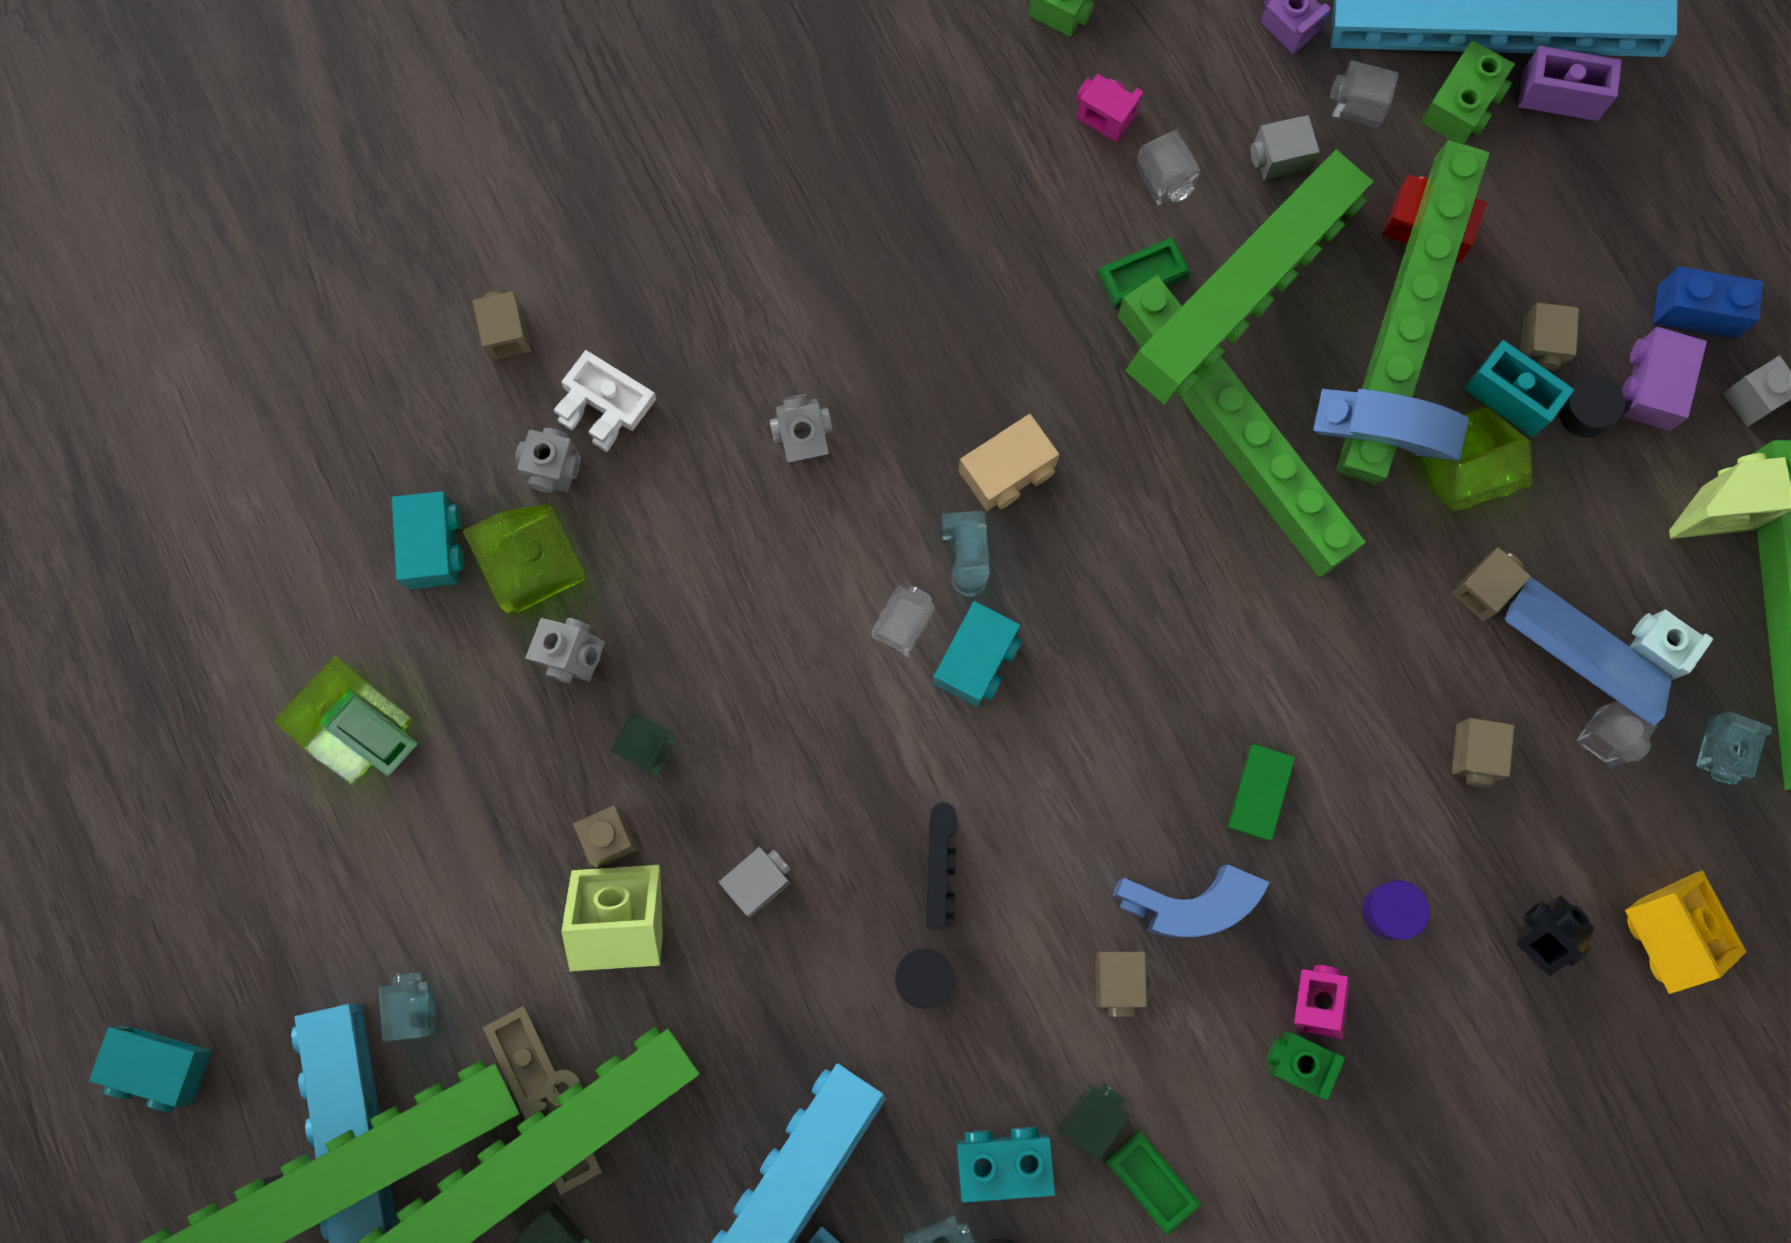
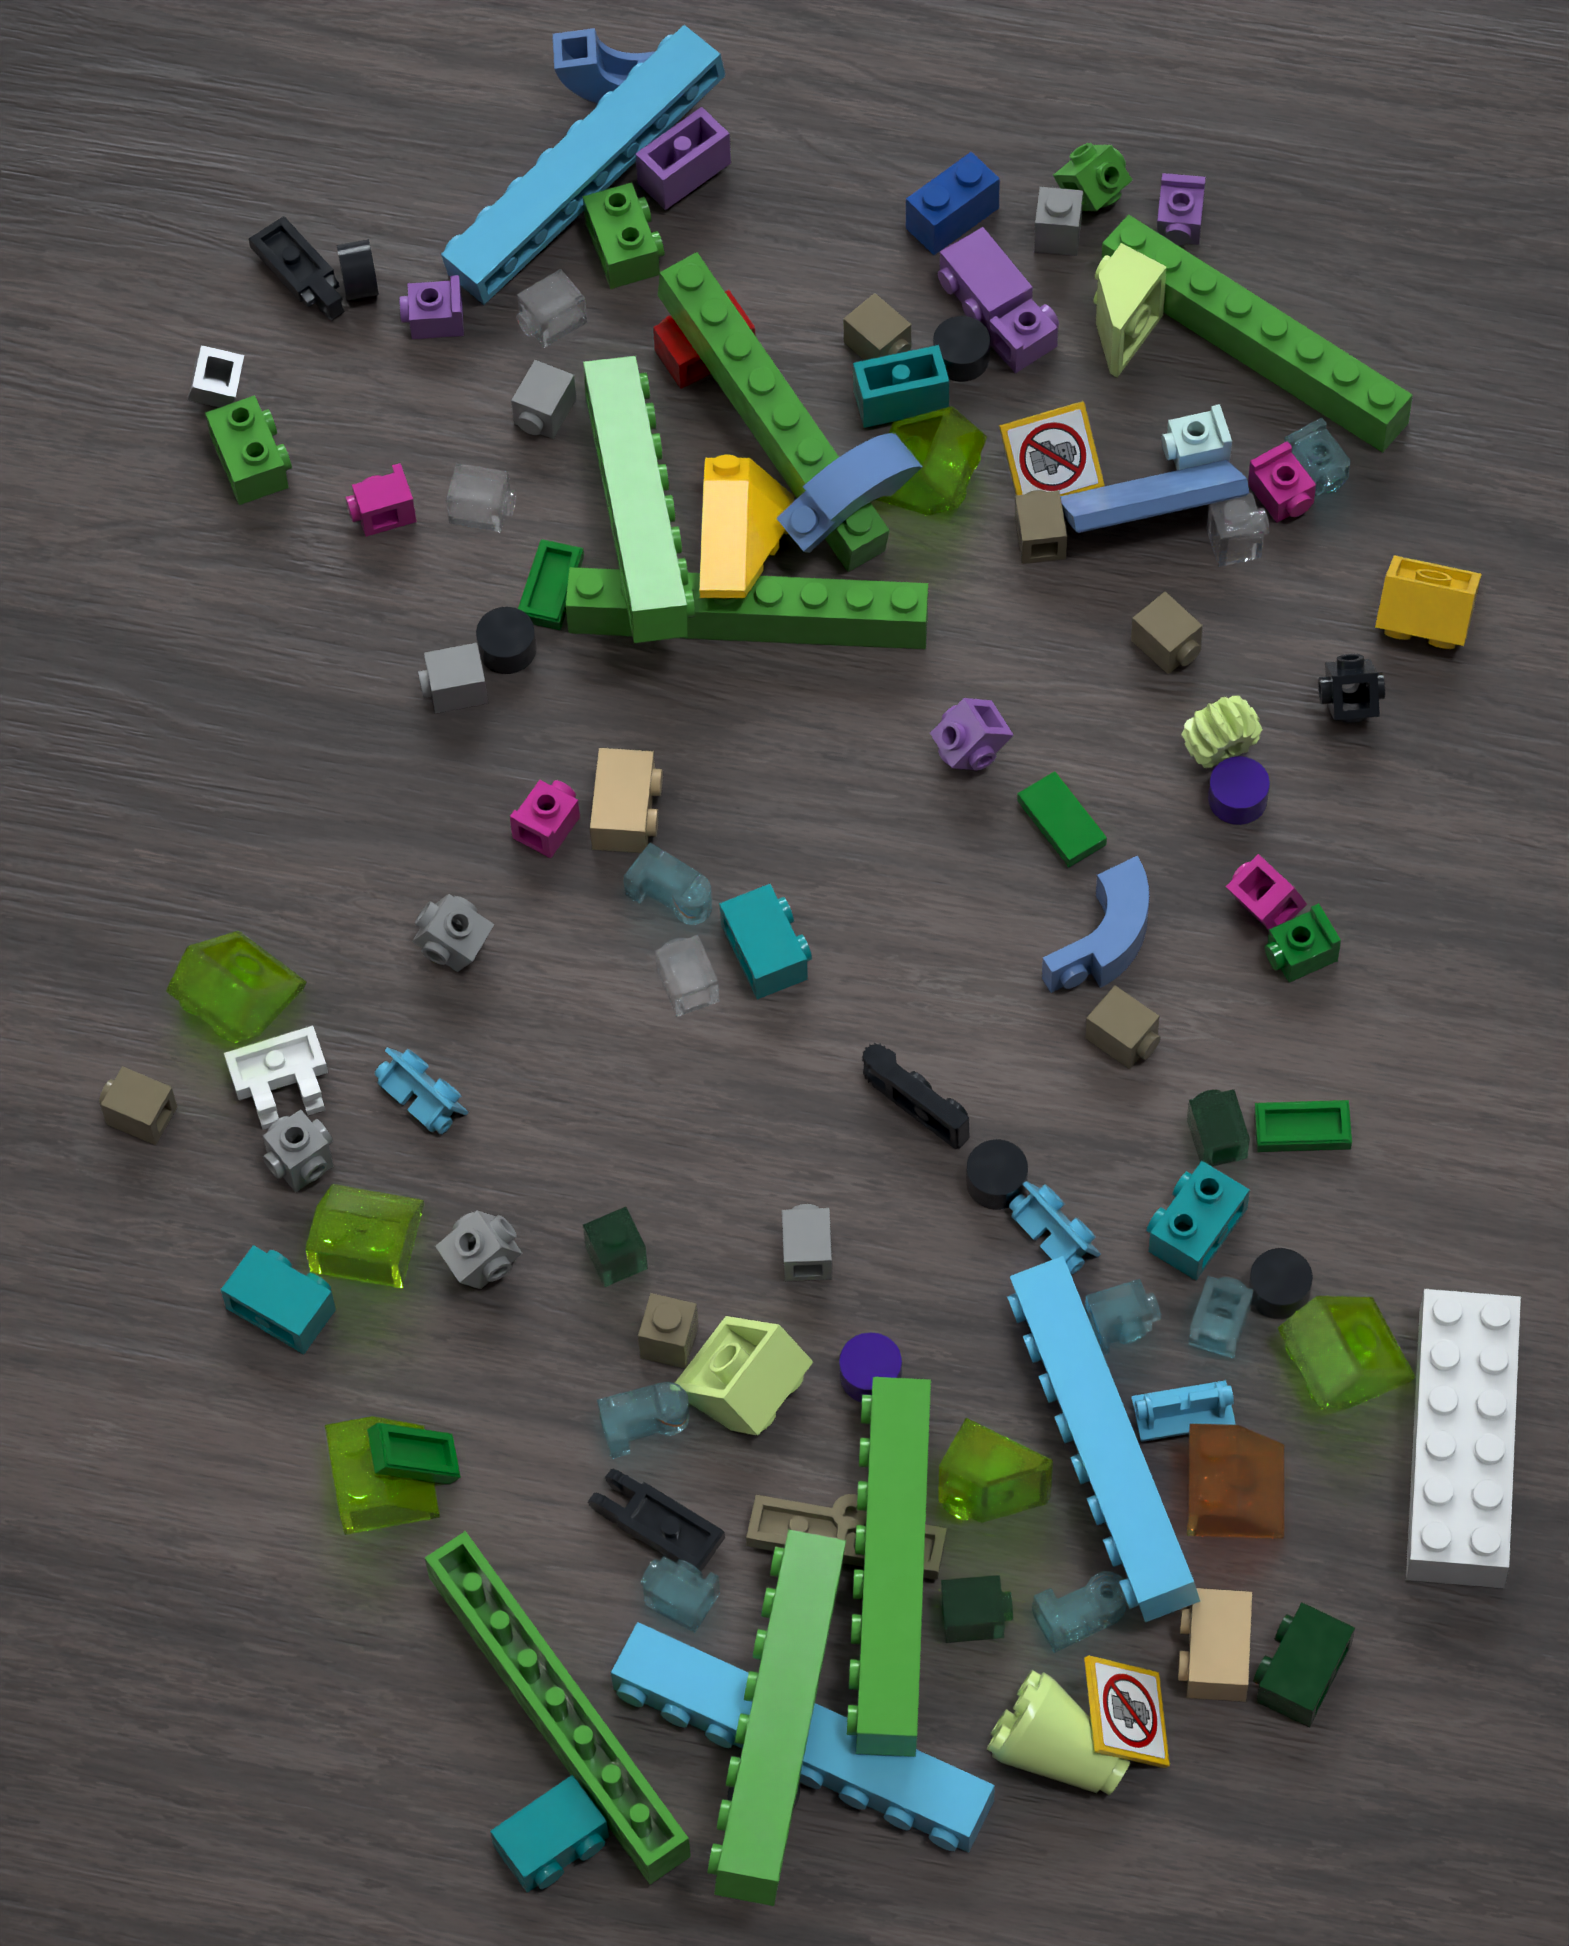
camera: 50 degrees left, 15 degrees down
(242, 1001) = (558, 1707): none -> bright green brick
(454, 950) = (659, 1521): none -> black hinge
(540, 876) = (642, 1413): none -> clear light blue leg
(646, 314) = (233, 985): none -> clear neon green slope
(659, 1180) = (991, 1475): none -> clear neon green slope
(671, 487) = (435, 1099): none -> medium azure hinge
(693, 1008) = (868, 1357): none -> dark purple piece
(879, 1169) = (1121, 1313): none -> clear light blue brick
(913, 1078) = (1042, 1212): none -> medium azure hinge
(944, 431) = (541, 828): none -> dark pink brick
(1008, 267) = (454, 678): none -> light grey brick
(1070, 278) = (506, 640): none -> black piece
(1269, 673) = (971, 734): none -> medium lavender brick
(1294, 366) = (738, 525): none -> yellow wedge
(1432, 862) = (1221, 731): none -> yellowish green gear
(1560, 544) = (1052, 452): none -> piece
(1632, 443) = (1024, 334): none -> medium lavender brick
(1674, 742) = (1281, 483): none -> dark pink brick

